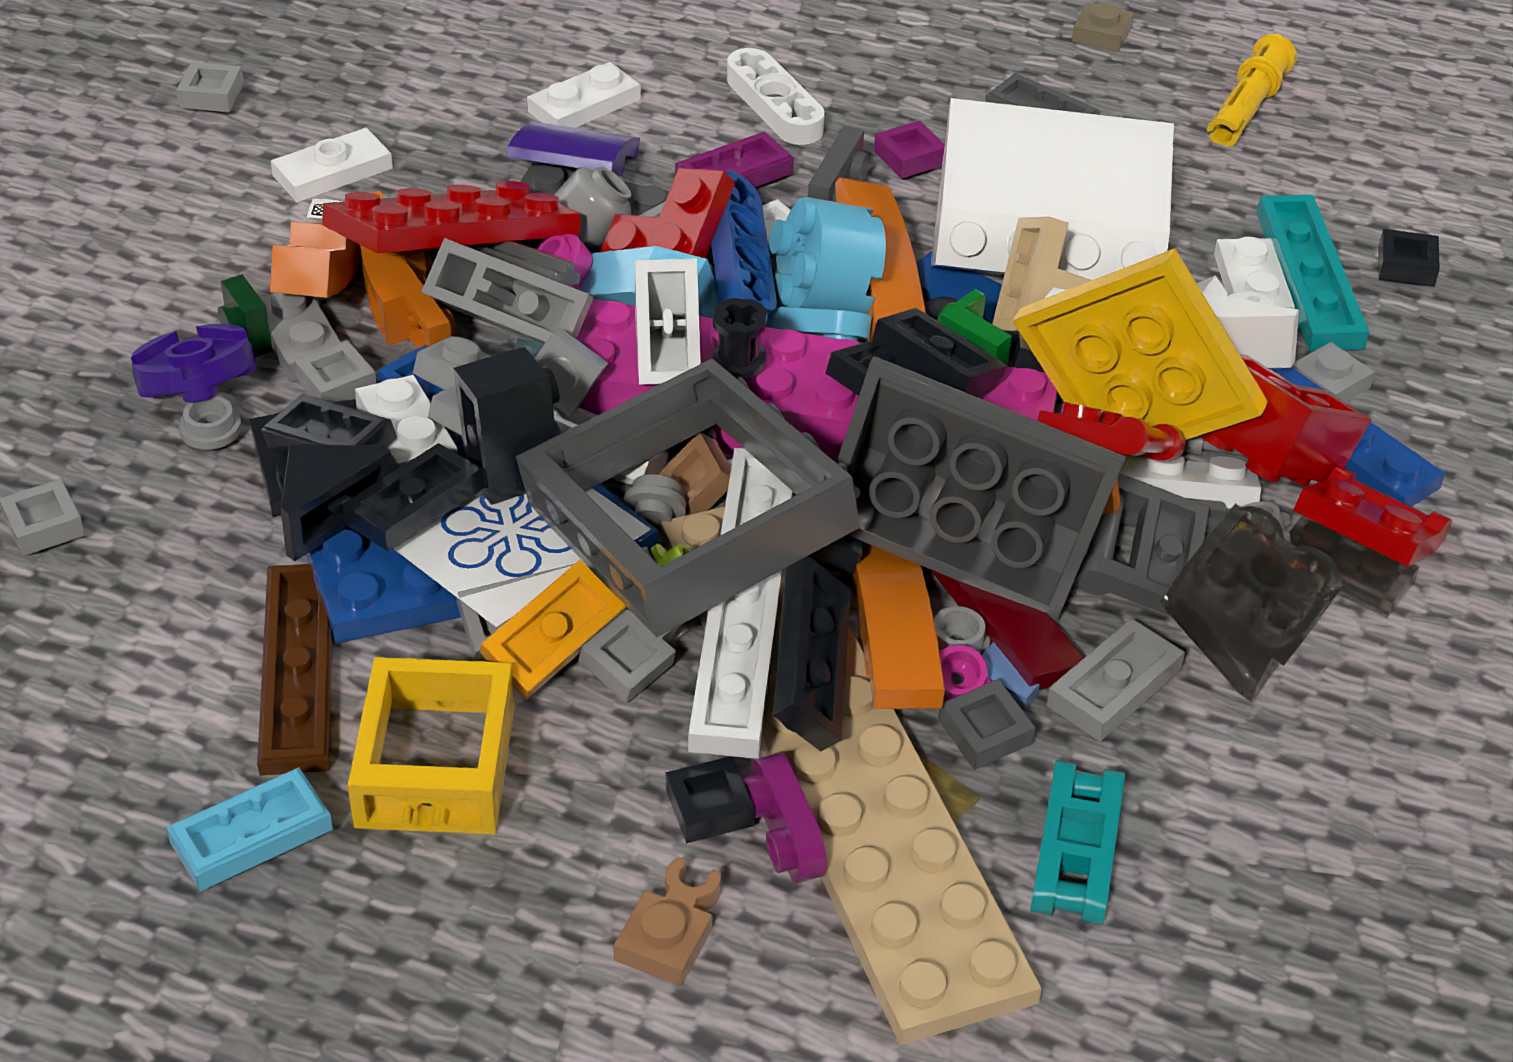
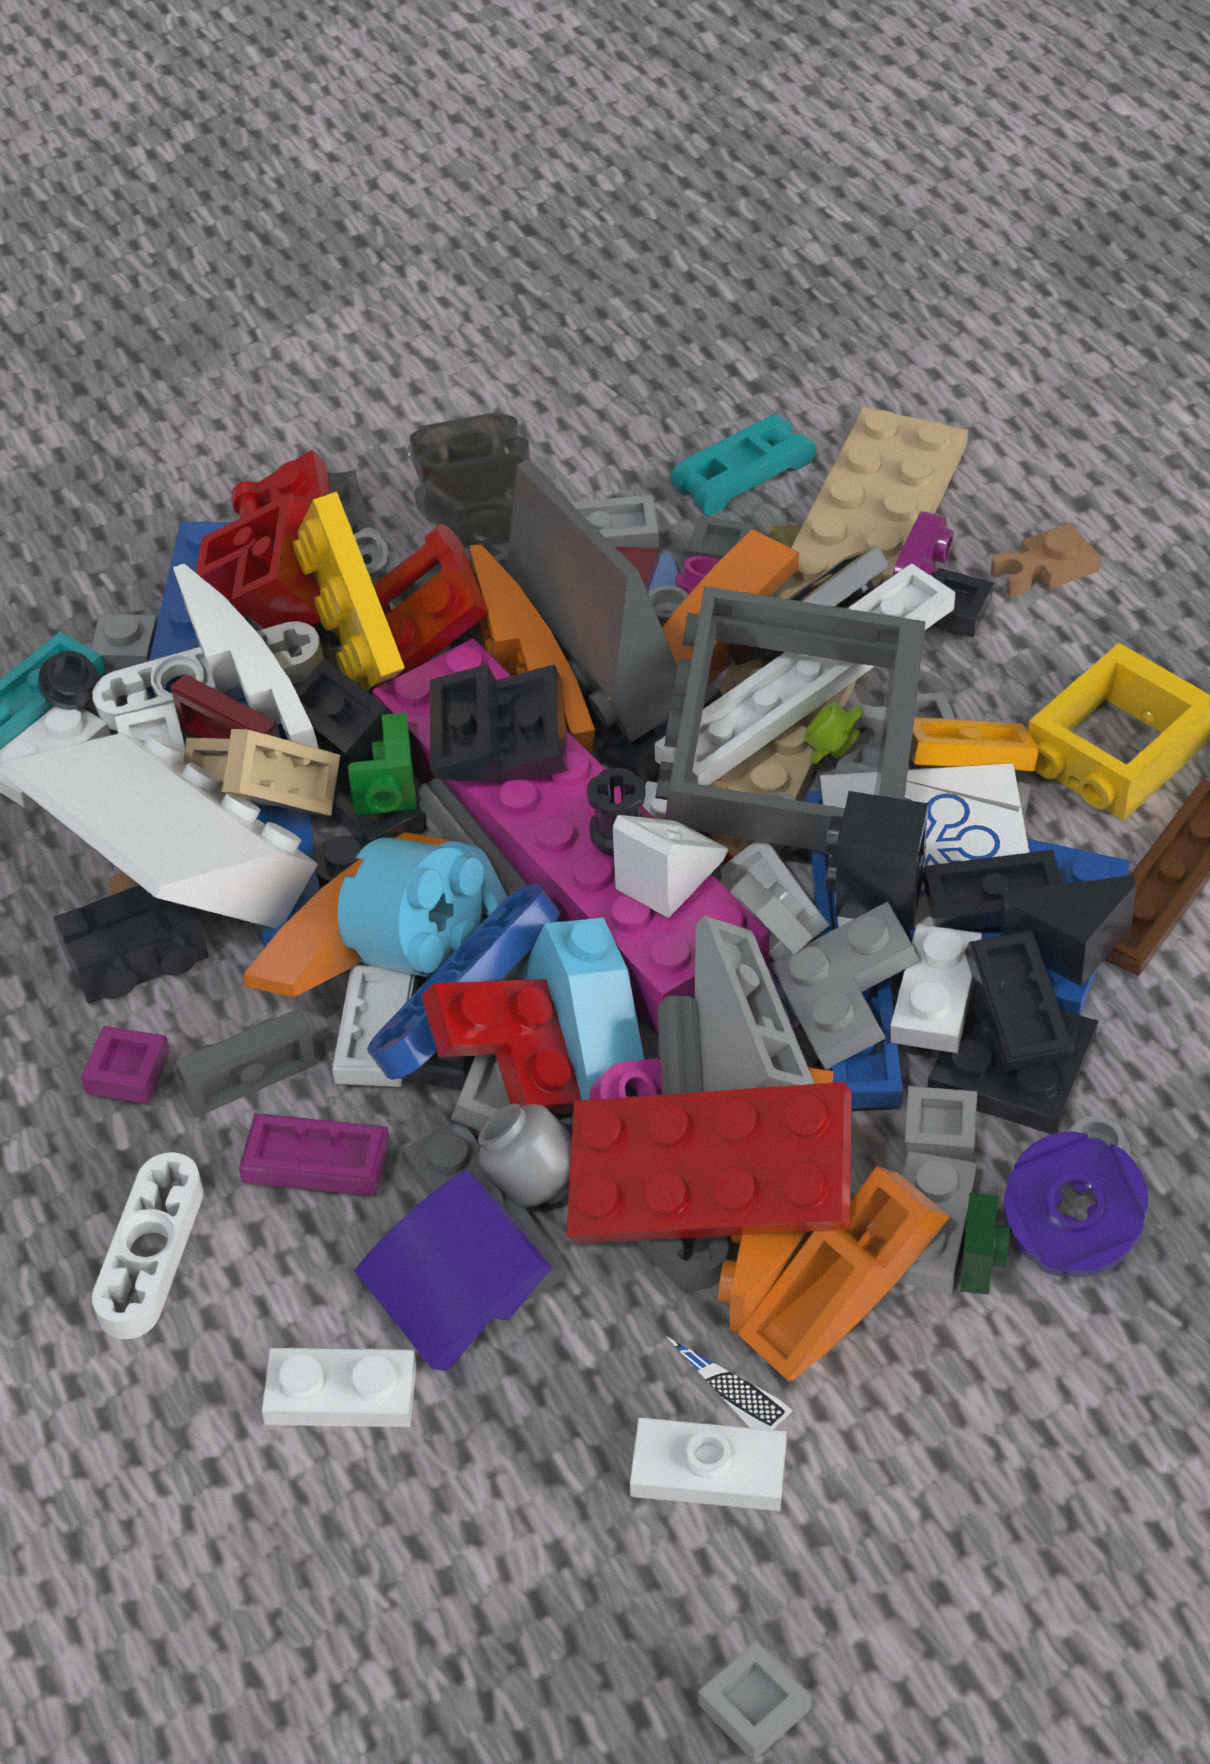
camera: 135 degrees left, 5 degrees up
(1293, 285) = (68, 680): none -> black plate

